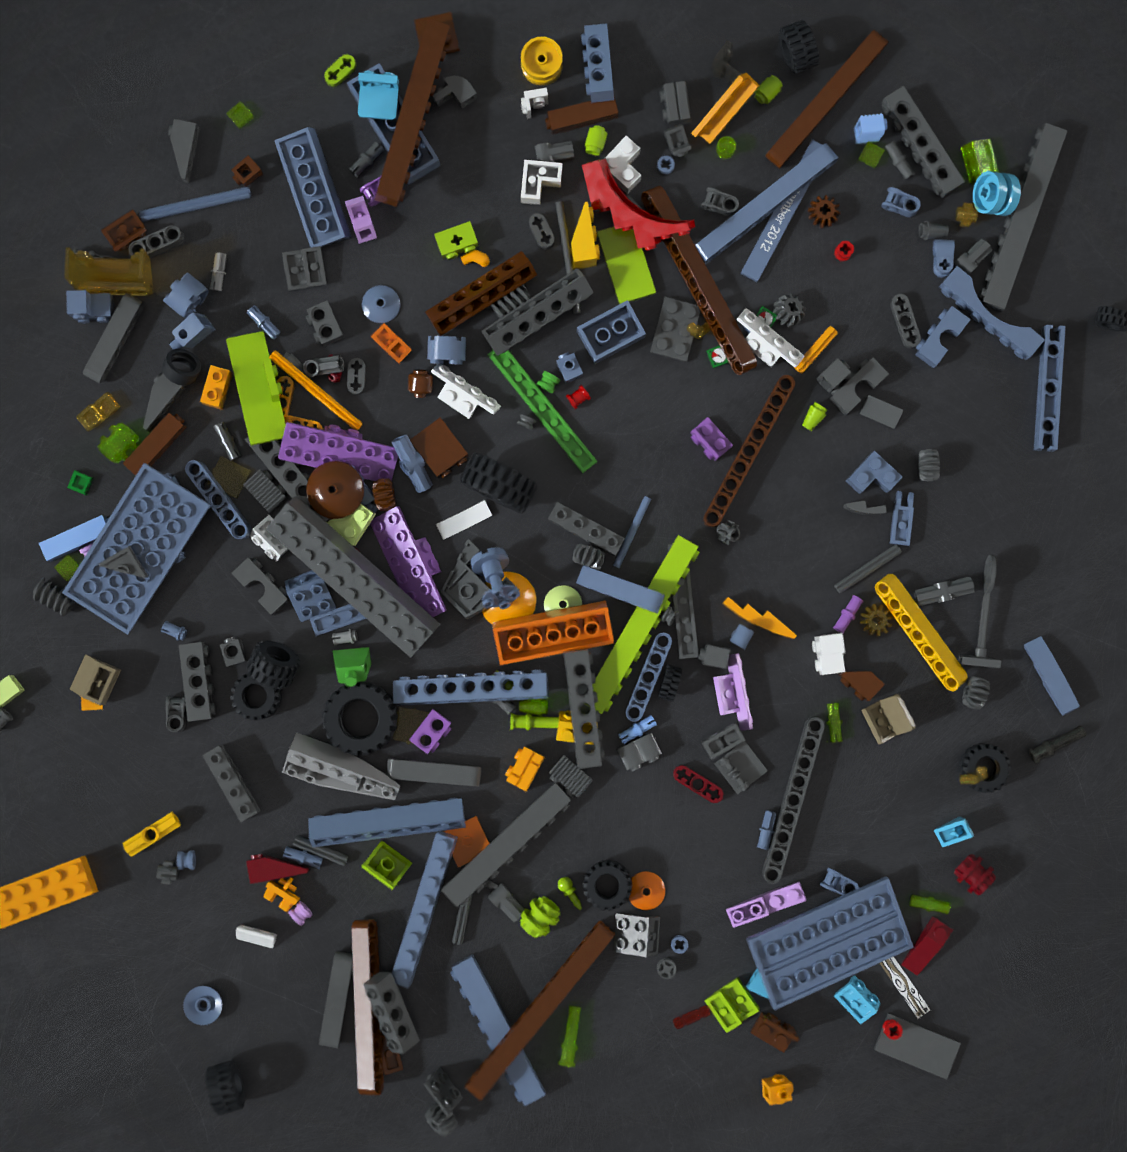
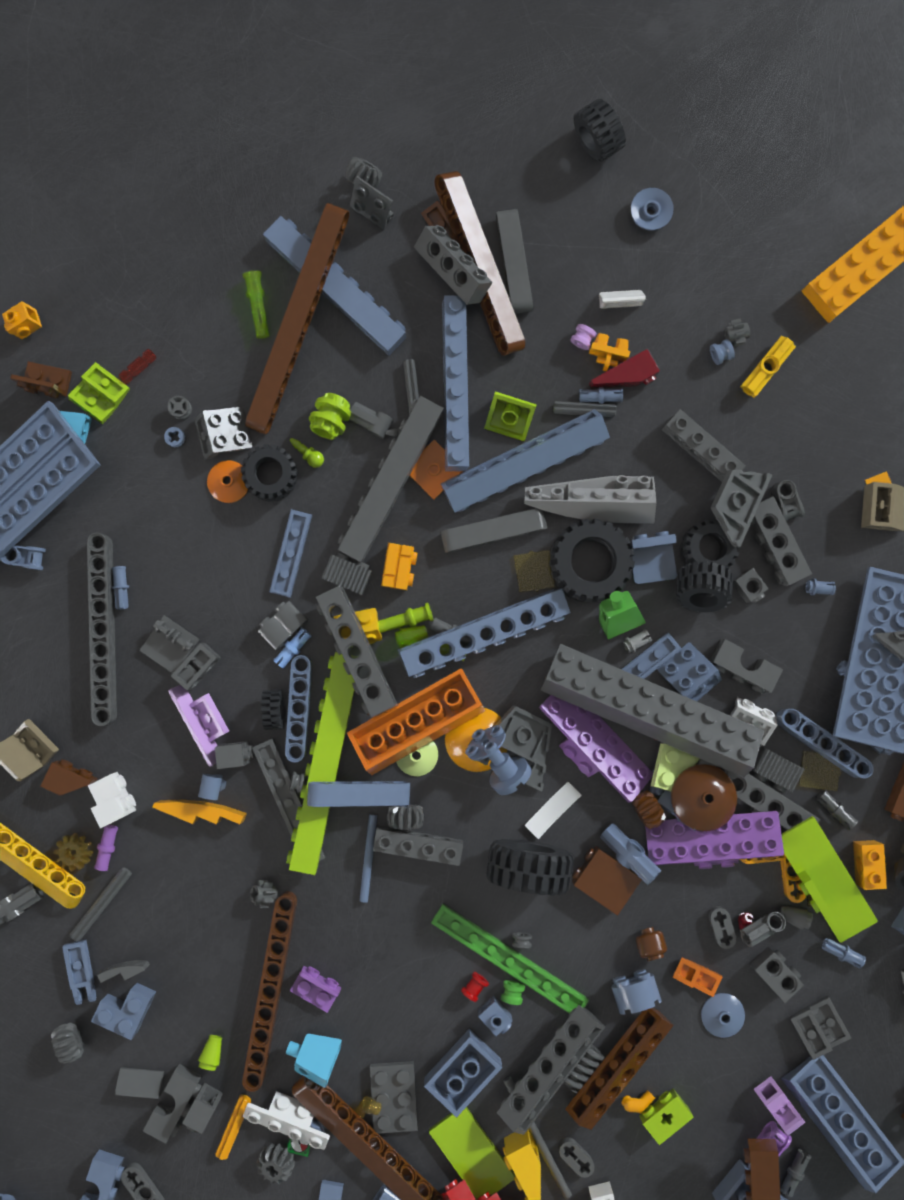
camera: 160 degrees right, 0 degrees up
(219, 726) = (738, 502): none -> dark grey wing
(306, 703) = (653, 558): none -> sand blue bracket
(315, 390) = (762, 898): light orange axle -> none
(427, 729) = (516, 573): medium lavender brick -> none
(462, 395) = (601, 945): white bracket -> none
(613, 810) = (290, 553): none -> sand blue tile
(707, 796) = (195, 602): dark red beam -> none
(716, 357) = (339, 1082): tile -> none
(728, 385) = (315, 1057): none -> medium azure torso
(765, 904) = (95, 510): lavender slope -> none
(834, 722) = (84, 726): clear neon green pin -> none

